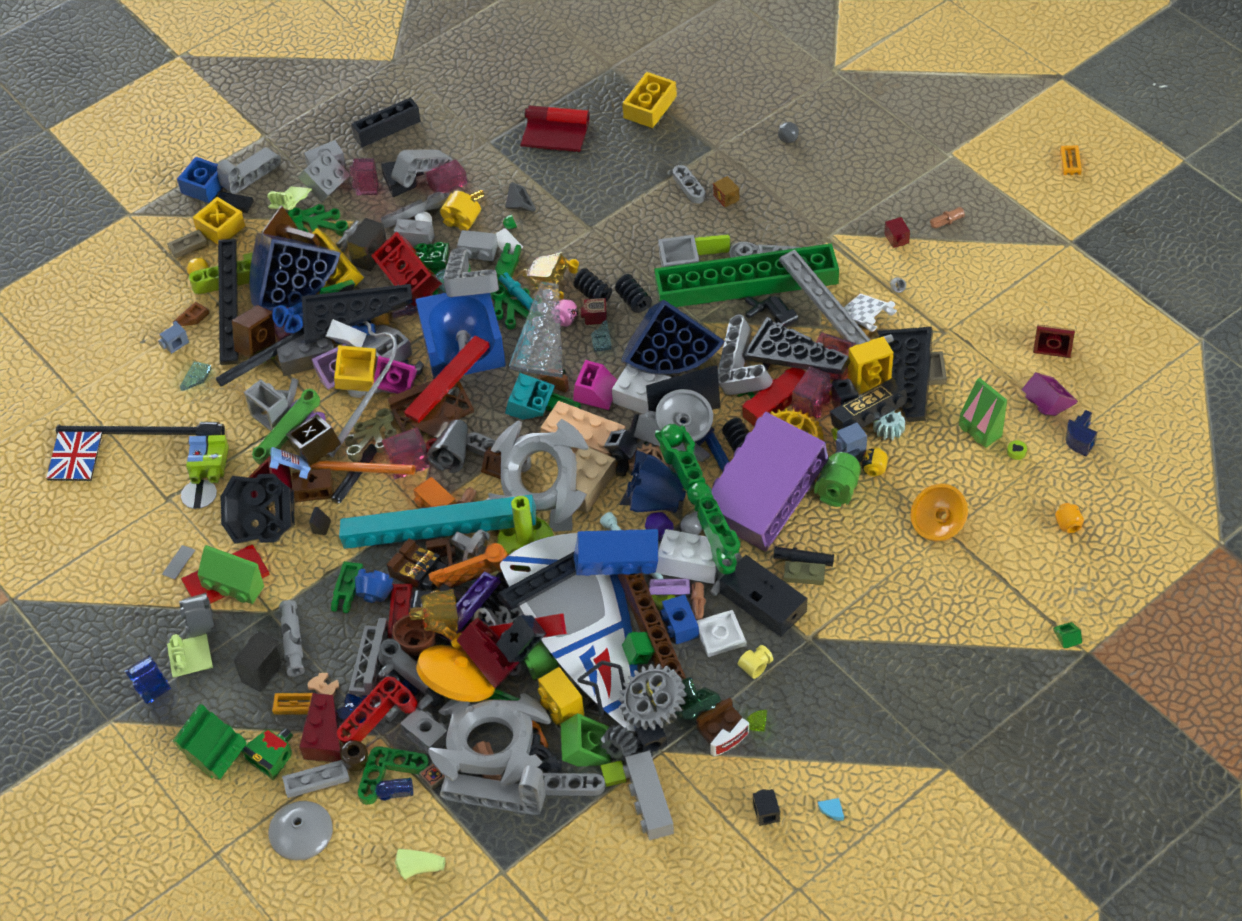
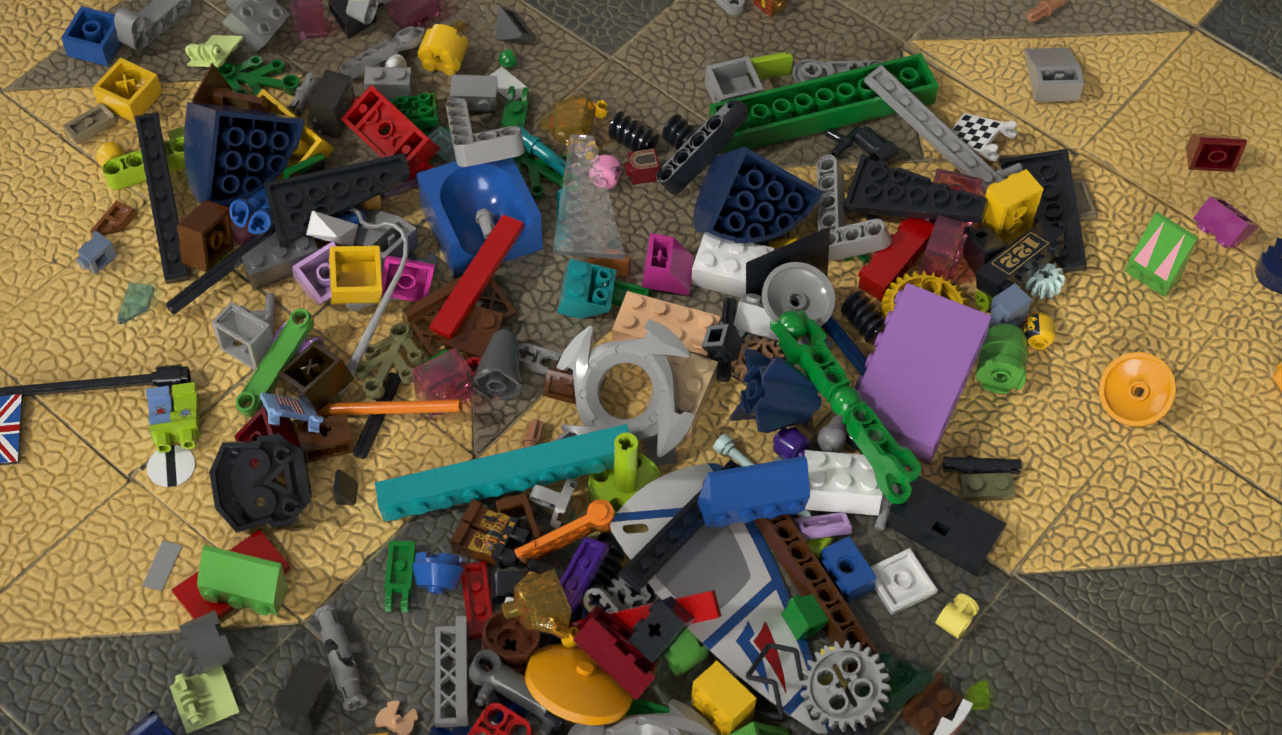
camera: 15 degrees left, 5 degrees up
(240, 202) = (148, 60): black tile -> none
(432, 495) = (490, 437): orange brick -> none
(601, 338) = (657, 201): clear light blue tile -> none
(640, 299) = (702, 147): none -> black piece
(697, 600) = (863, 539): nougat axle -> none
(897, 232) = (991, 31): dark red brick -> none
(900, 282) = (1010, 95): light grey hinge -> none
(939, 270) = (1054, 74): none -> light grey slope
(1017, 450) = (1204, 296): lime tile -> none

